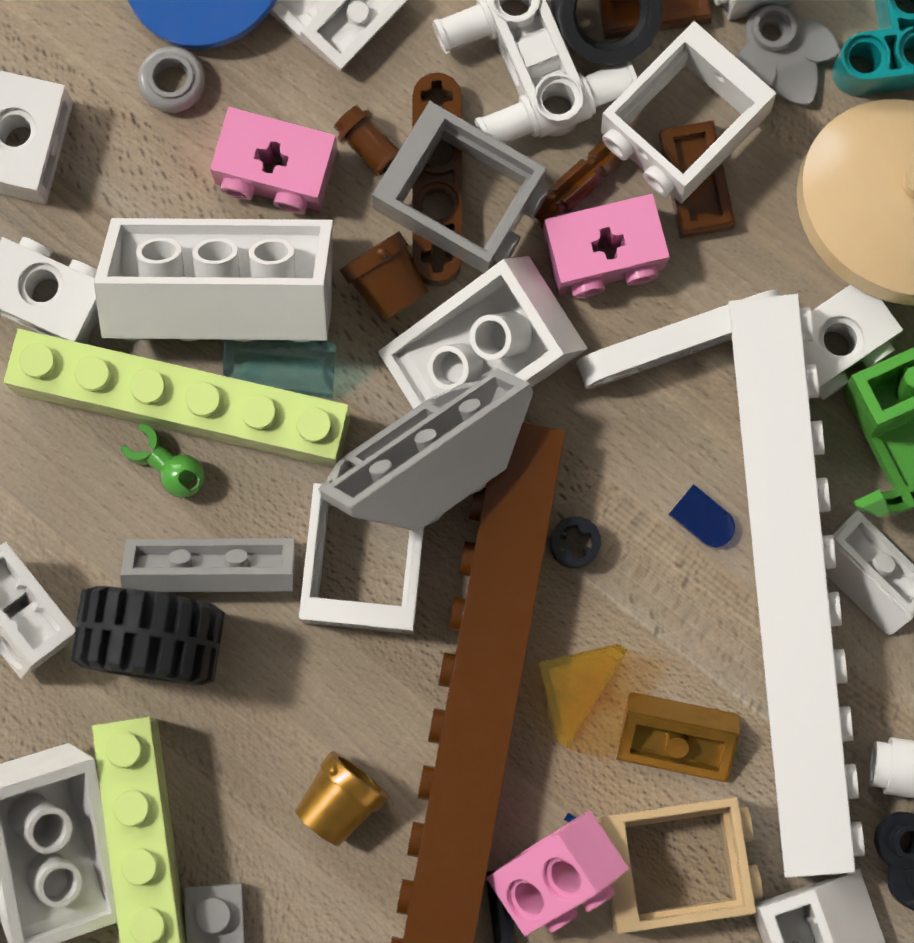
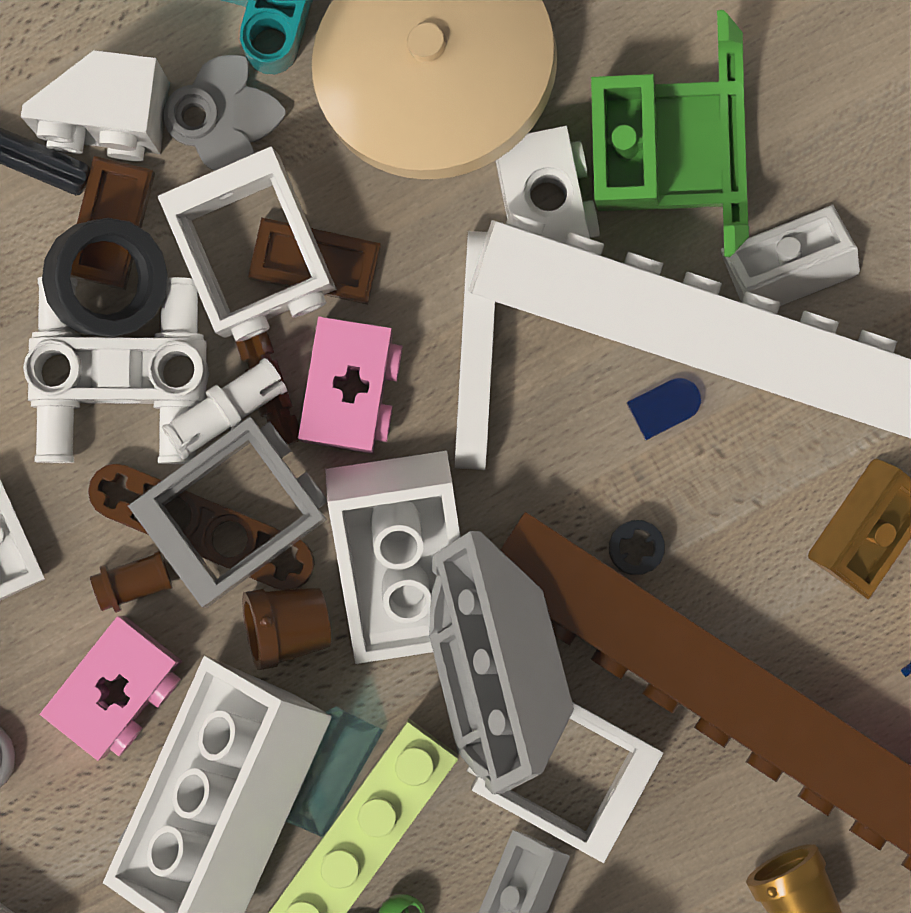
camera: 65 degrees left, 5 degrees up
(544, 149) = (224, 408): none -> white pin
(573, 686) = (781, 609): clear yellow slope -> none

